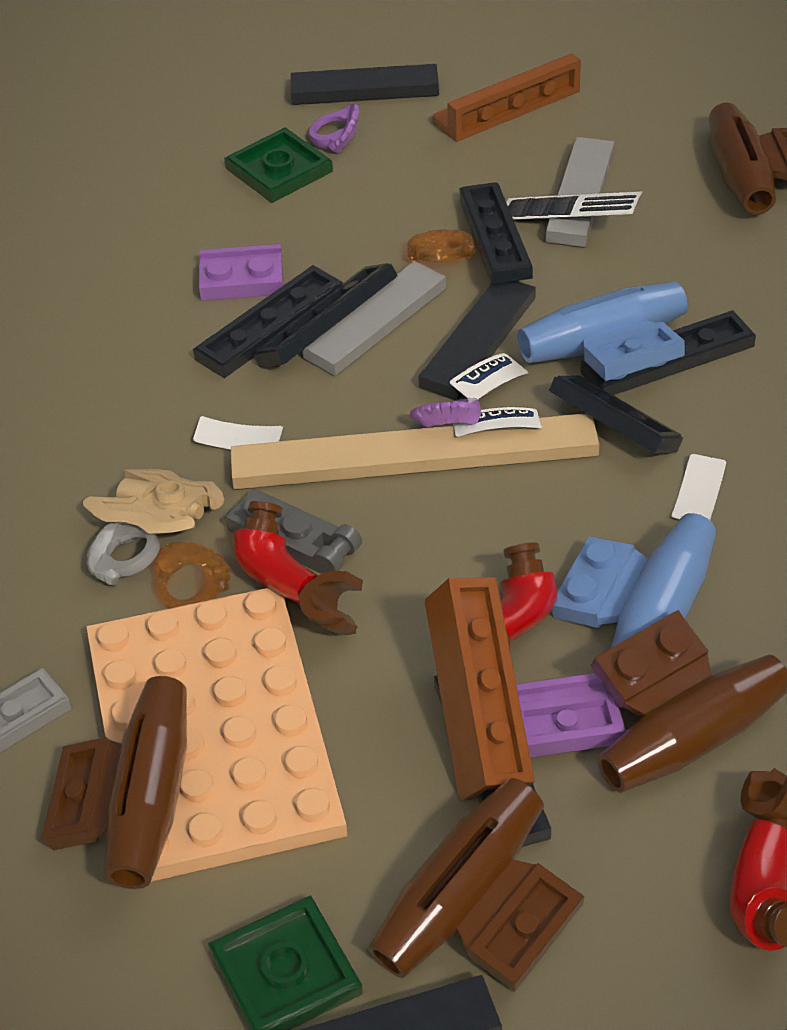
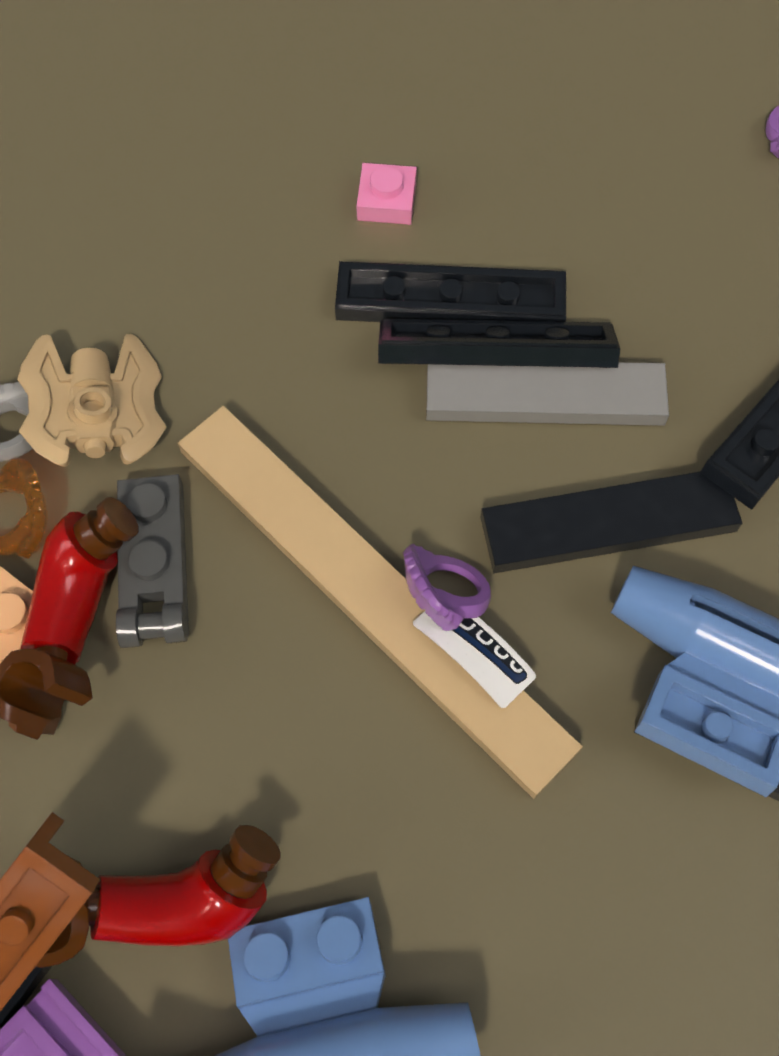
camera: 50 degrees right, 20 degrees up
(168, 308) = (386, 193): none -> bright pink plate
(226, 434) = (260, 396): white sticker -> none
(240, 272) = (498, 214): medium lavender plate -> none
(278, 164) = (698, 121): dark green tile -> none
(441, 246) = (727, 360): clear orange piece -> none
(487, 375) = (551, 581): white sticker -> none
(616, 414) = (603, 781): black tile -> none
(699, 486) = (570, 970): white sticker -> none

